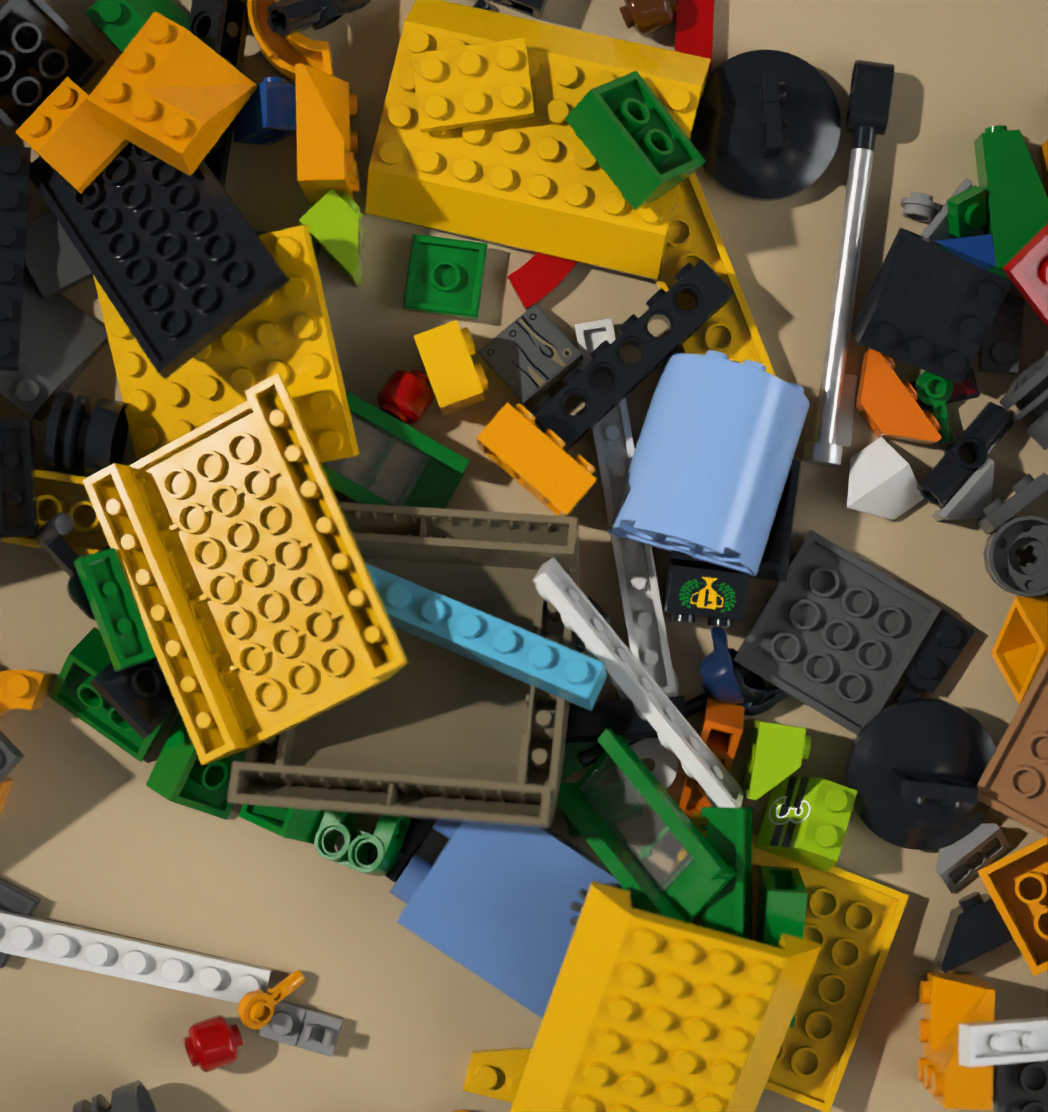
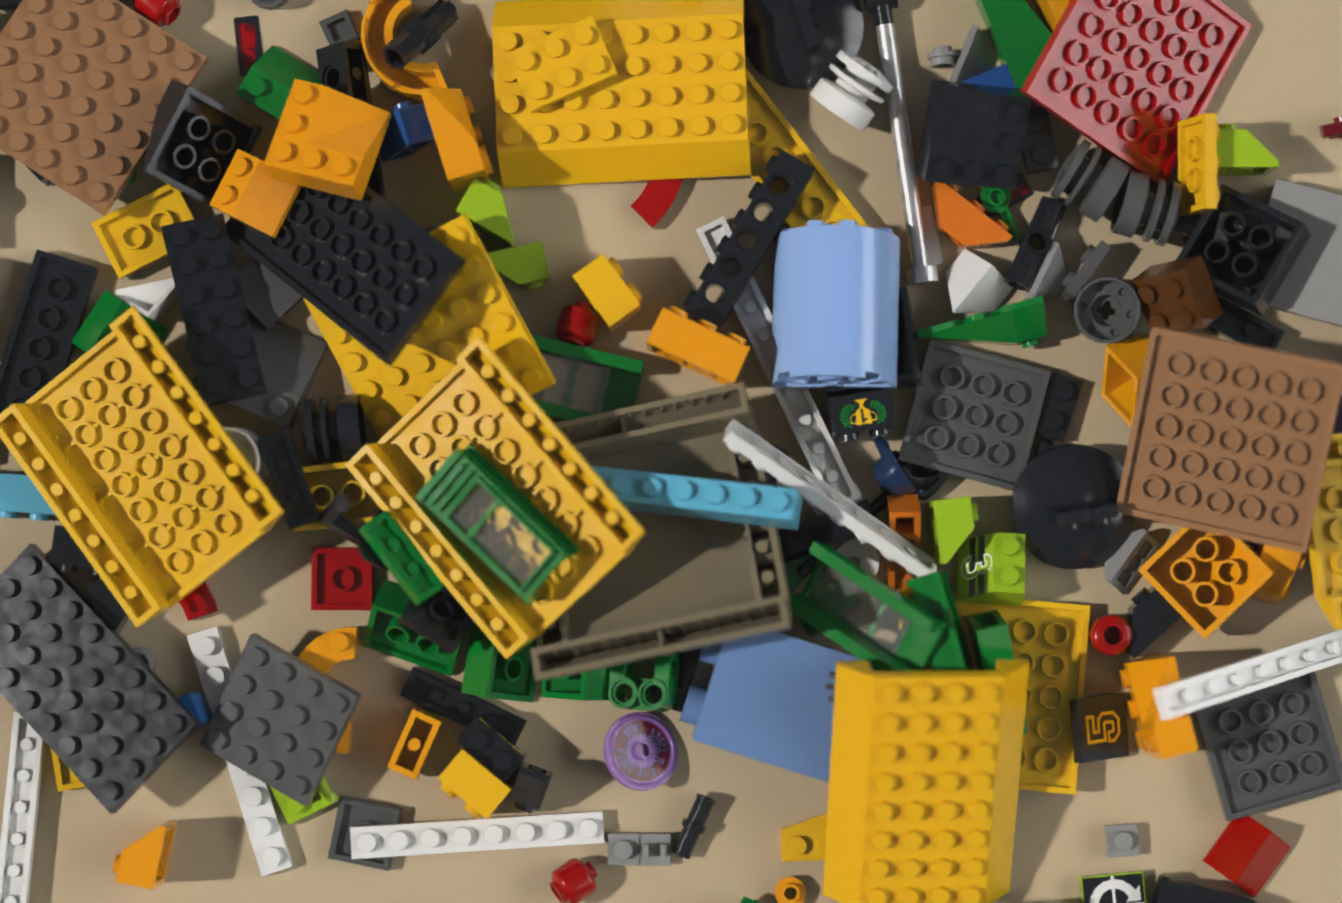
camera: 15 degrees left, 0 degrees up
(44, 614) = (341, 580): none -> red tile
(74, 829) = (415, 743): none -> light orange brick
(129, 896) = (474, 785): none -> yellow brick
(153, 812) = (460, 707): none -> black tile
(160, 861) = (491, 748): none -> black brick
(194, 918) = (530, 787): none -> black slope
(238, 598) = (497, 521): none -> green piece
(258, 1006) = (601, 841): light orange plate -> none
(334, 914) = (640, 751): none -> medium lavender shield
(361, 308) = (522, 265): none -> lime slope
(371, 1019) = (693, 826): none -> black pin
(445, 276) = (581, 220): green plate -> none
(531, 355) = (668, 263): dark grey tile -> none
(634, 139) = (702, 71): green slope -> none
(803, 213) = (851, 90): none -> white wheel
(878, 1041) = (1099, 727): none -> black tile
(908, 541) = (1008, 325): none -> green wedge
(932, 944) = (1119, 640): none -> red head
(967, 211) = (981, 50): green plate -> none

